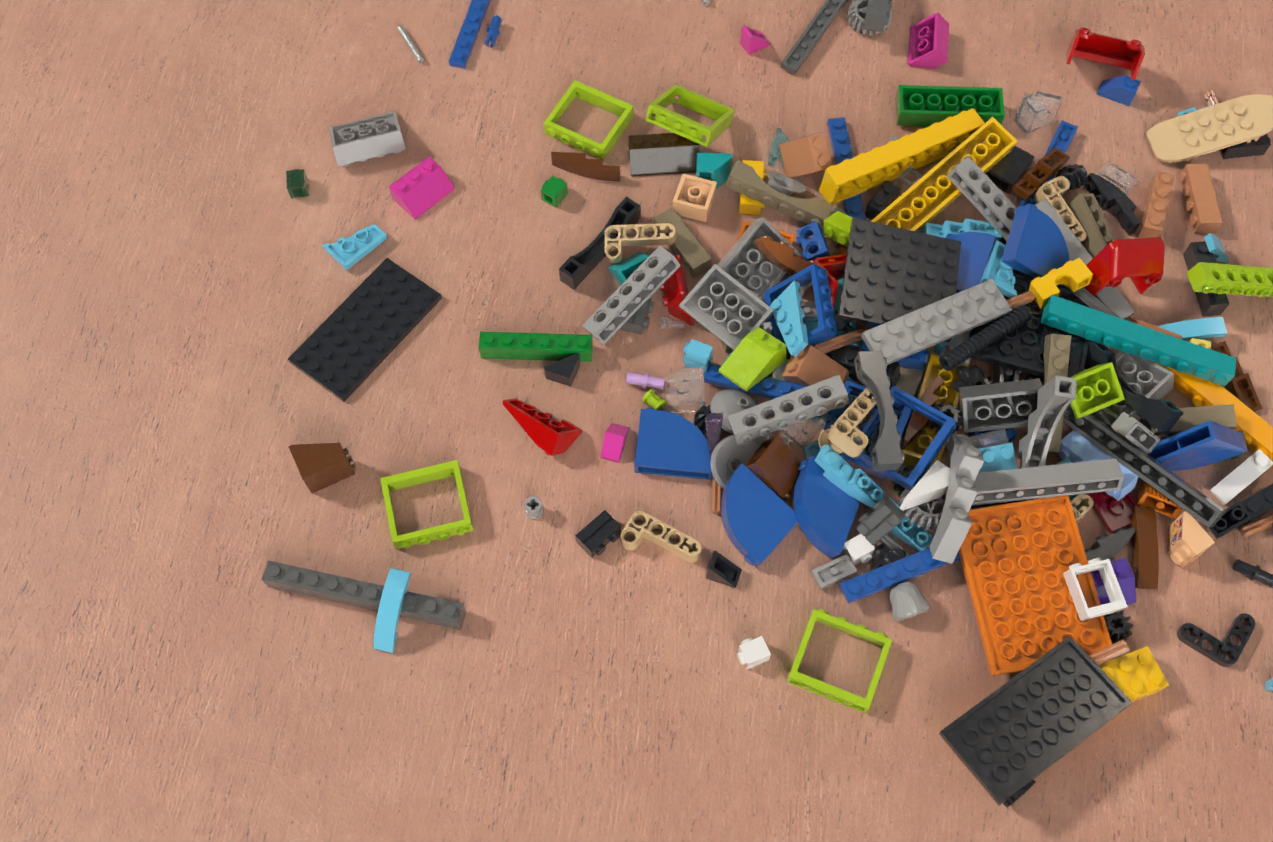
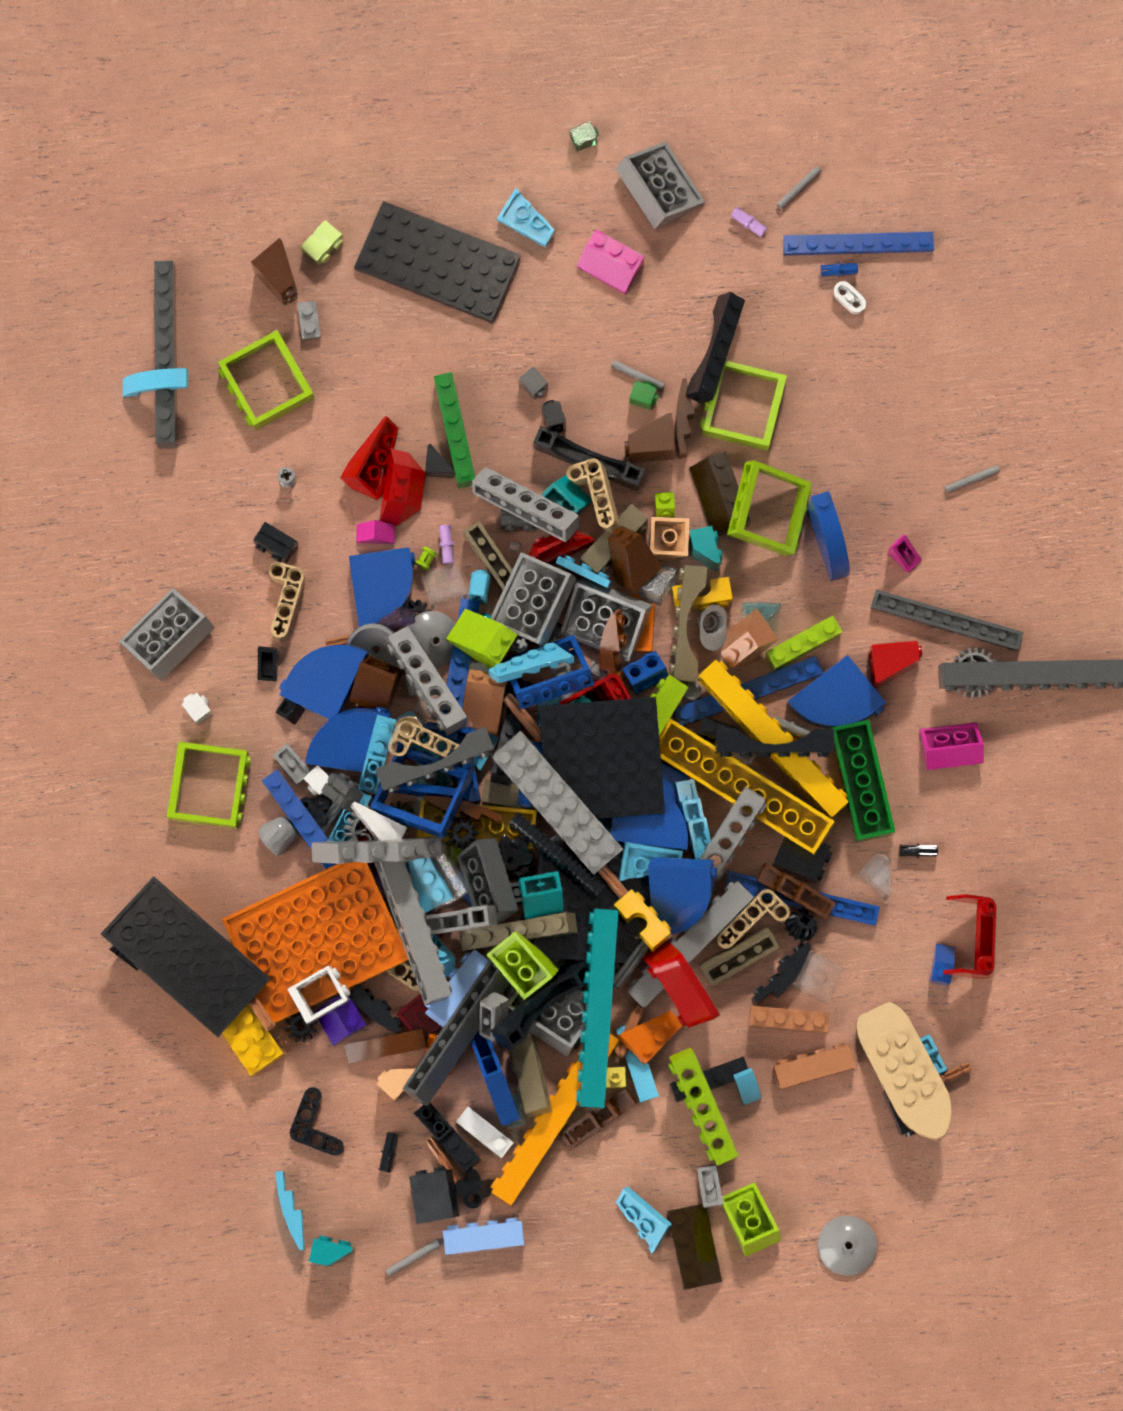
camera: 75 degrees right, 15 degrees up
(307, 422) = (322, 242): none -> yellowish green brick
(380, 452) = (309, 320): none -> light grey plate
(426, 82) = (748, 222): none -> lavender pin
(513, 273) = (534, 383): none -> dark grey brick
(520, 29) = (852, 296): none -> white plate
(530, 196) = (636, 374): none -> light grey bar
(551, 258) = (553, 416): none -> black brick
(560, 135) = (706, 378): none -> black arch
(577, 407) = (401, 488): none -> red wedge
(601, 186) = (652, 441): none -> reddish brown slope
(661, 197) = (665, 504): none -> lime bracket
(665, 665) = (167, 634): none -> light grey slope
(670, 342) = (488, 554): none -> dark tan brick
(697, 274) = (584, 570): none -> medium azure wing
(708, 223) = (631, 559): none -> reddish brown slope
(726, 76) = (829, 535): none -> blue brick
(734, 213) = (659, 586): none -> clear brick
(775, 563) = (290, 711): none -> black slope
(814, 116) = (803, 643): none -> lime brick
(851, 63) = (892, 660): none -> red slope
(868, 110) = (837, 697): none -> blue brick
(918, 115) = (734, 742): none -> black arch
(1015, 86) = (918, 850): none -> black axle
(1023, 356) = (541, 895): none -> teal slope
(1161, 312) = (650, 1036): none -> orange wing

